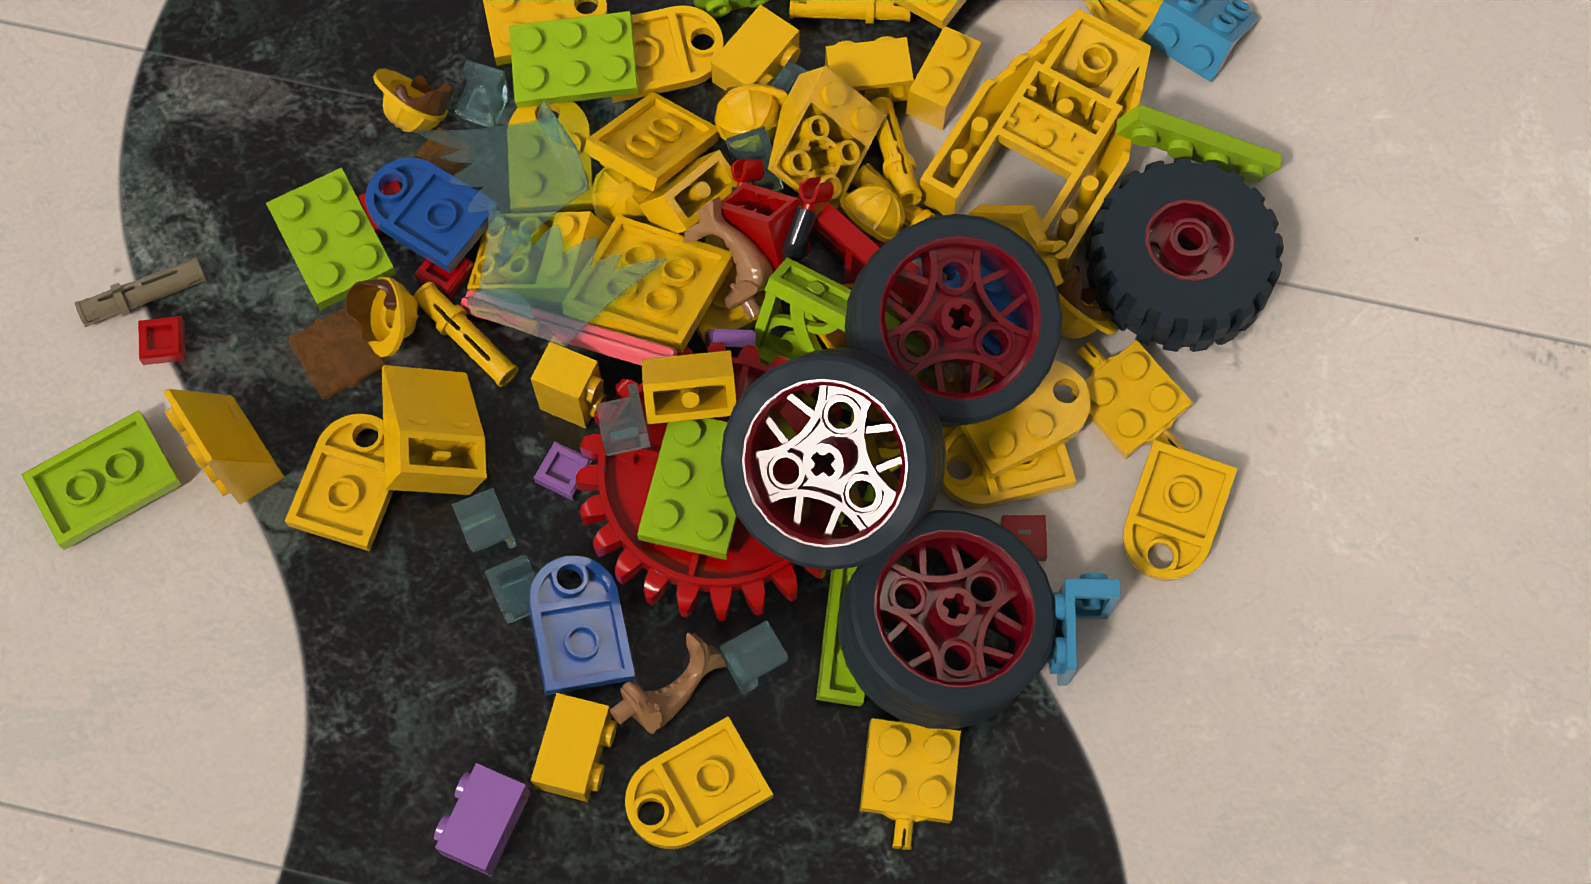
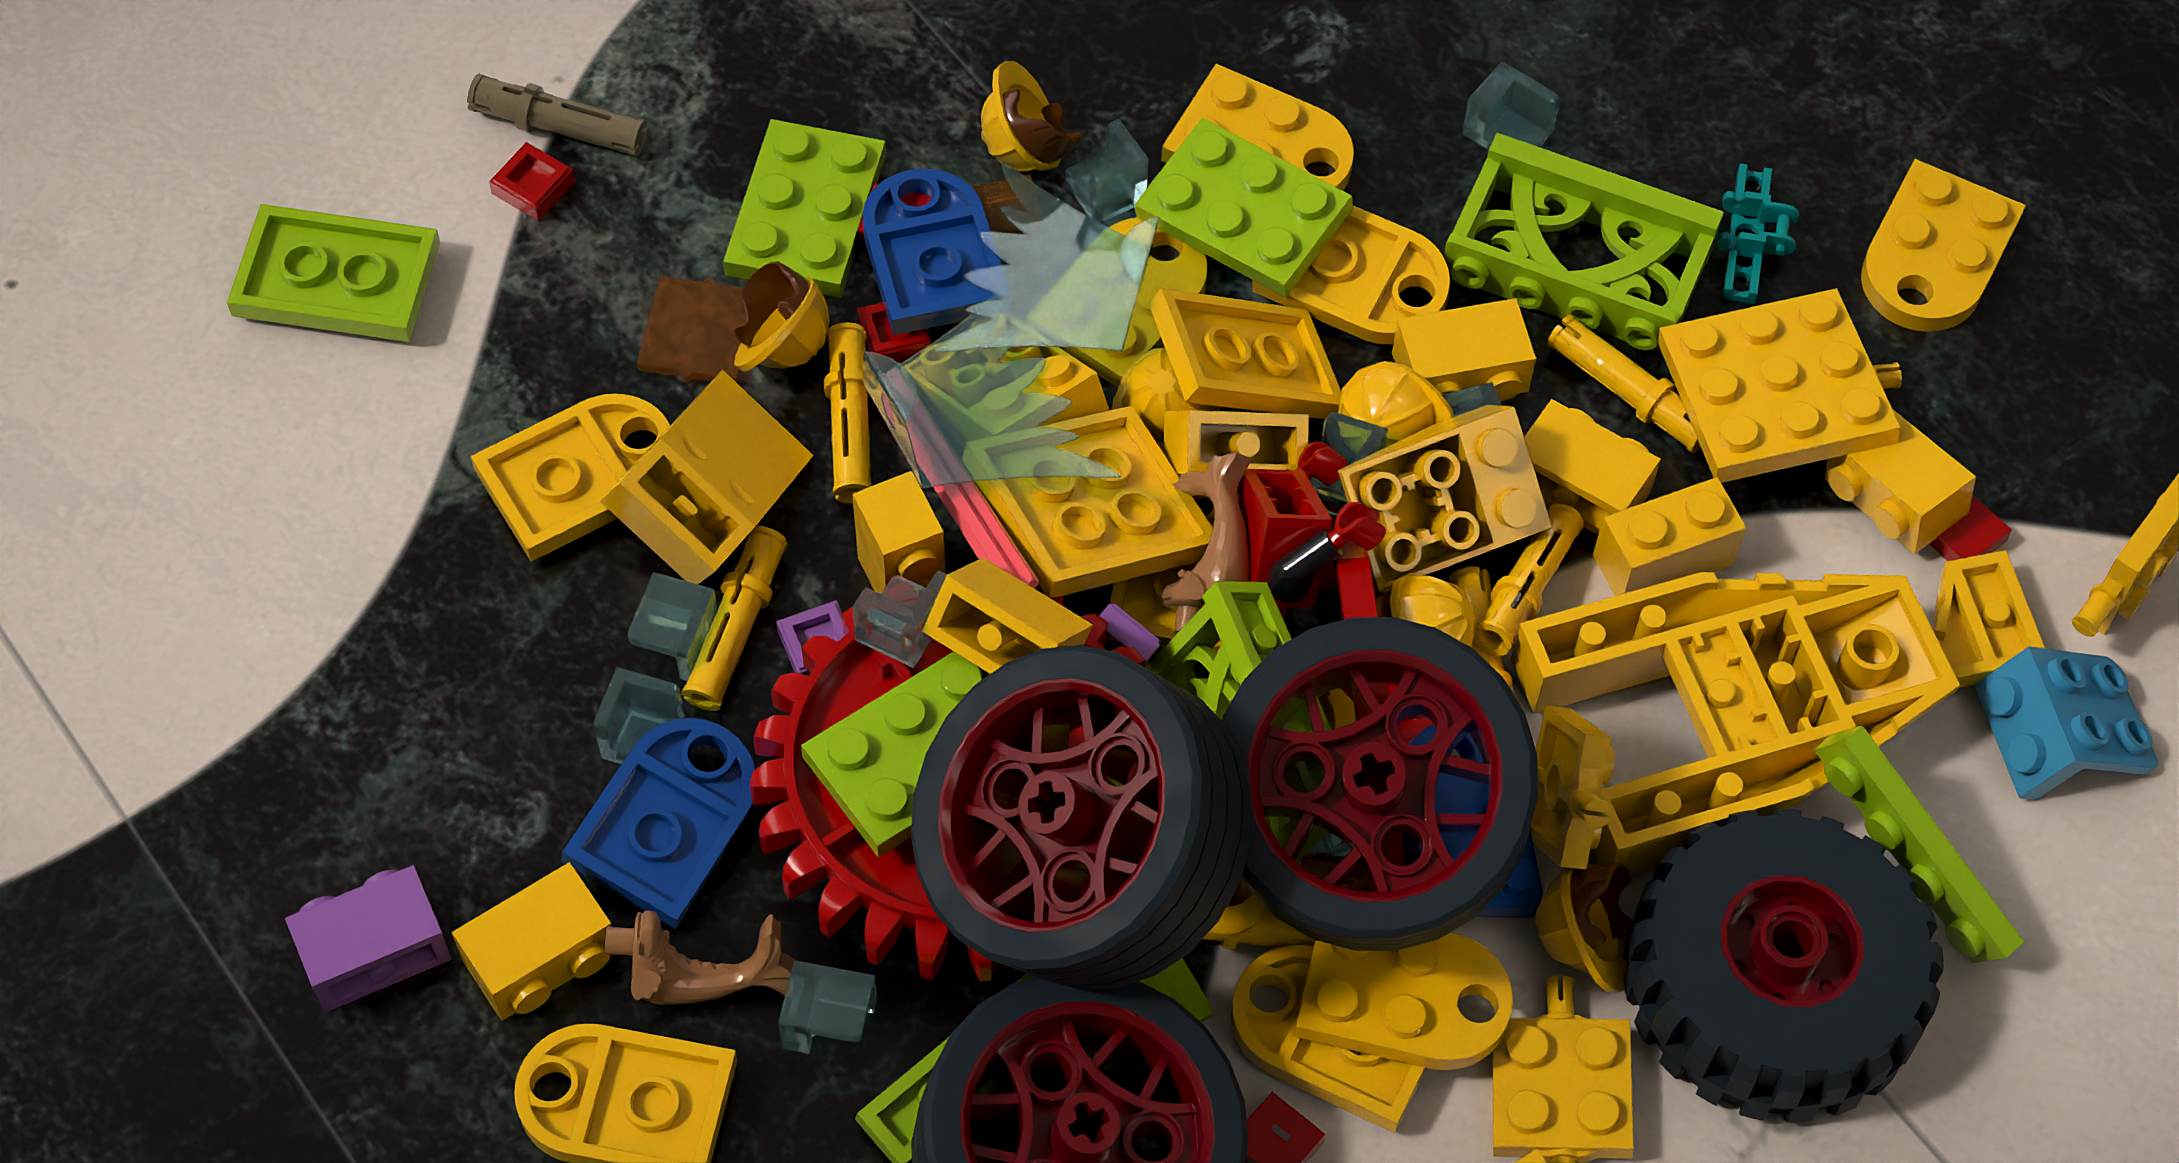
camera: 40 degrees right, 10 degrees down
(223, 442) = (479, 318): yellow slope -> none
(504, 477) = (744, 595): none -> yellow pin

